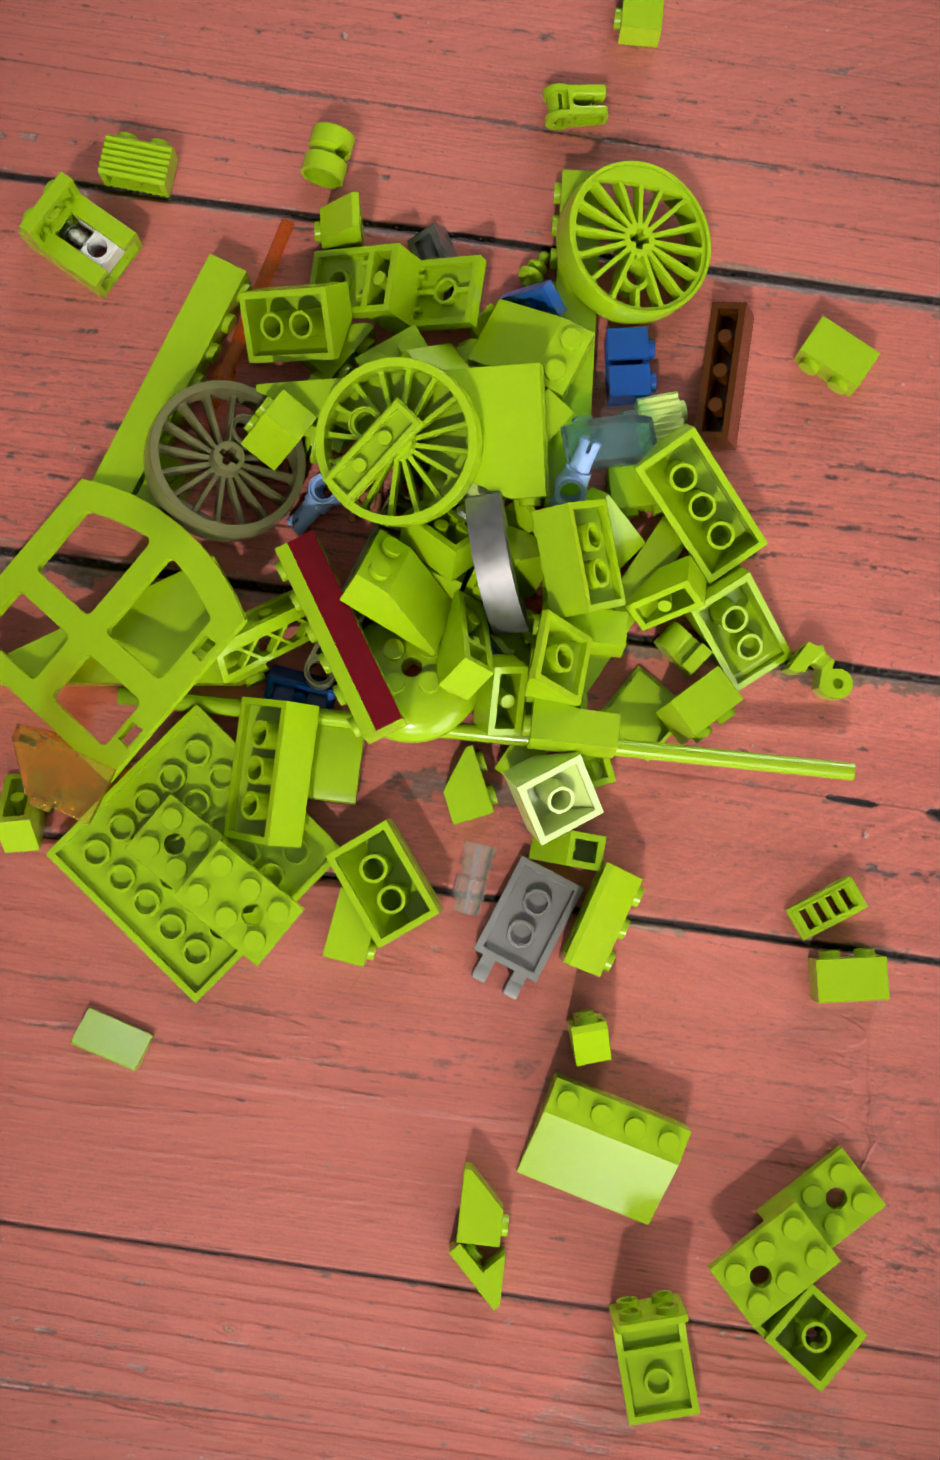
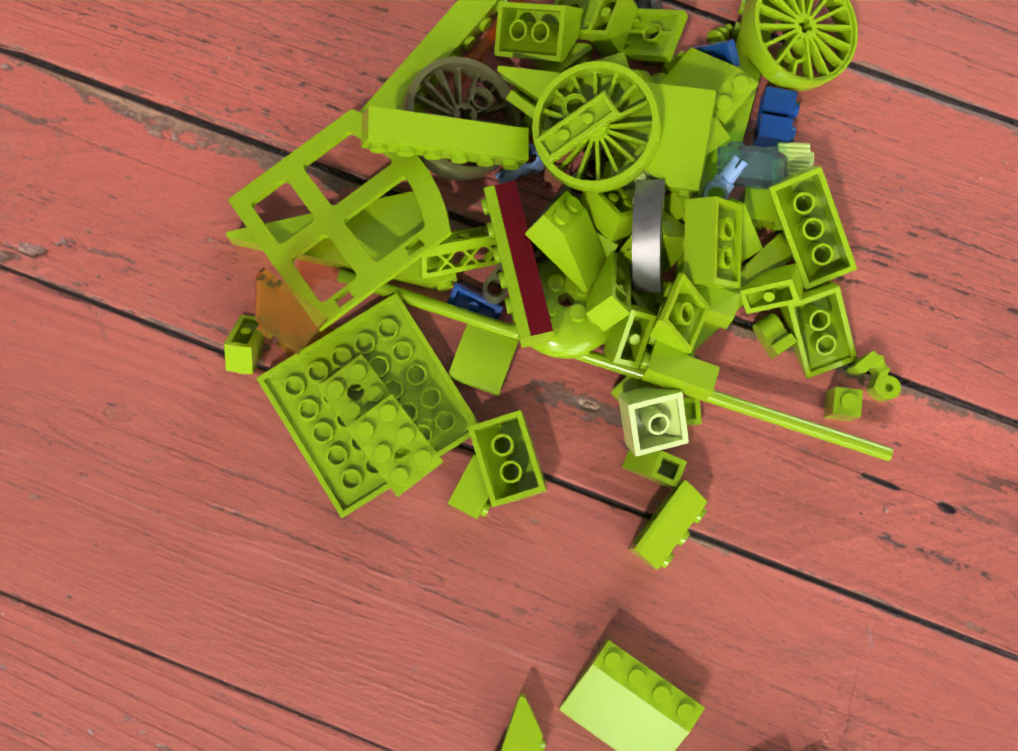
camera: 15 degrees right, 5 degrees down
(112, 1039) = (271, 531): lime slope -> none
(208, 497) = (444, 137): none -> lime brick
(271, 772) = (441, 353): lime slope -> none
(277, 428) = (507, 100): lime brick -> none
(466, 790) = (585, 404): lime slope -> none
(472, 882) = (574, 475): clear axle -> none
(525, 924) = (608, 517): light grey tile -> none
(589, 1037) = (639, 616): lime slope -> none
(637, 703) = (738, 374): lime piece -> none
(699, 706) = (778, 380): lime brick -> none
(724, 374) = (849, 137): reddish brown brick -> none
(785, 716) = (843, 403): none -> lime brick
(832, 918) = (867, 550): lime slope -> none
(836, 357) = (934, 145): lime brick -> none
(848, 977) = (852, 617): lime brick -> none

